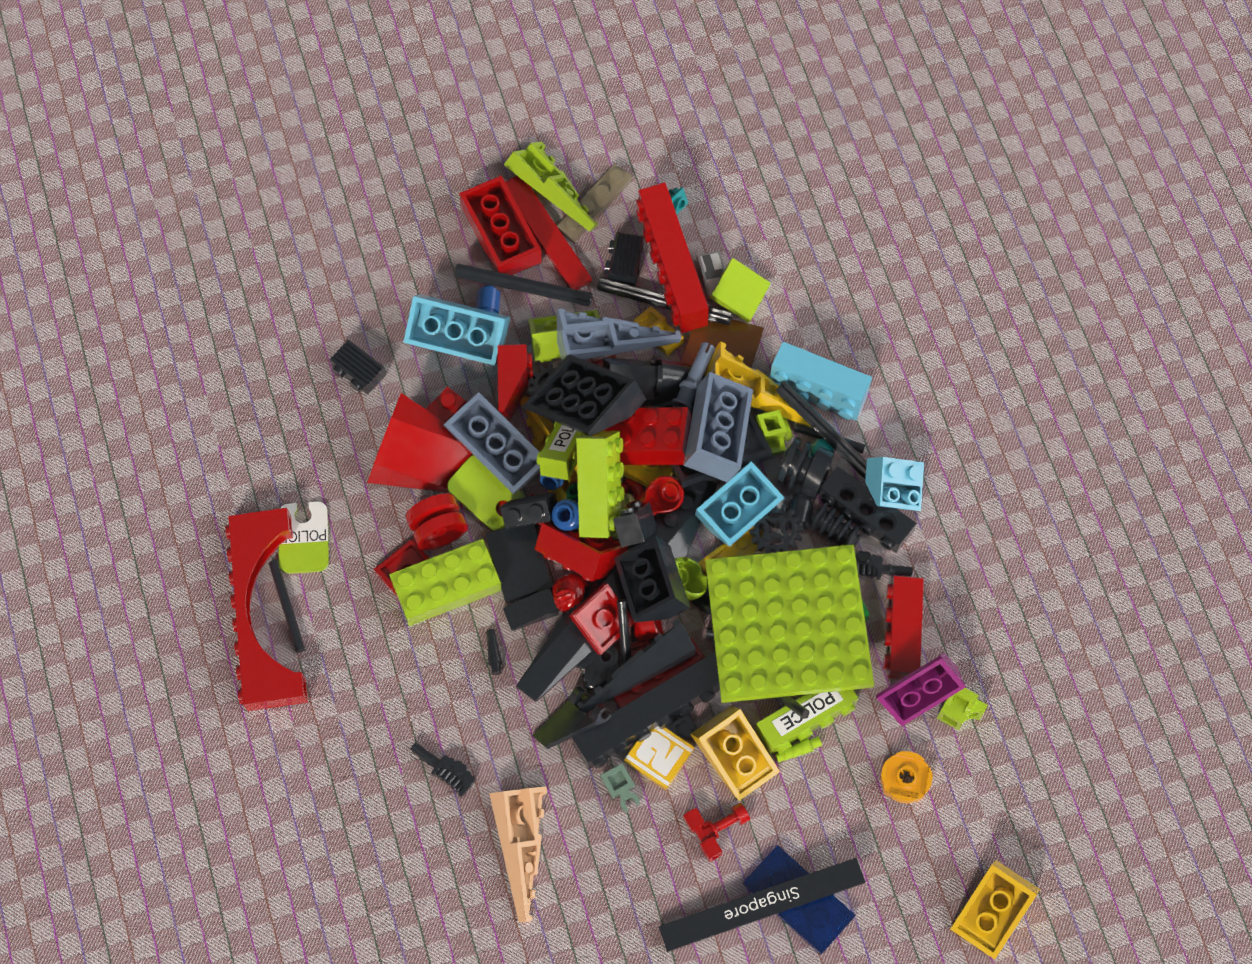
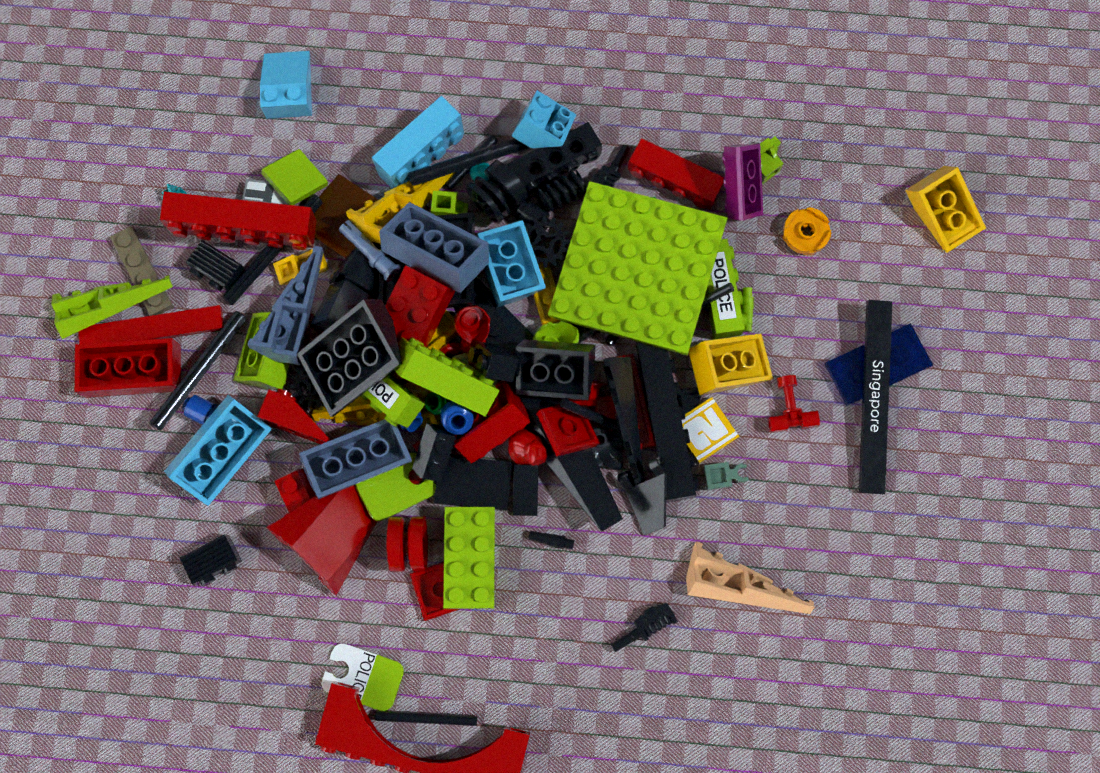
camera: 65 degrees left, 10 degrees up
(827, 246) = (286, 85): none -> medium azure slope

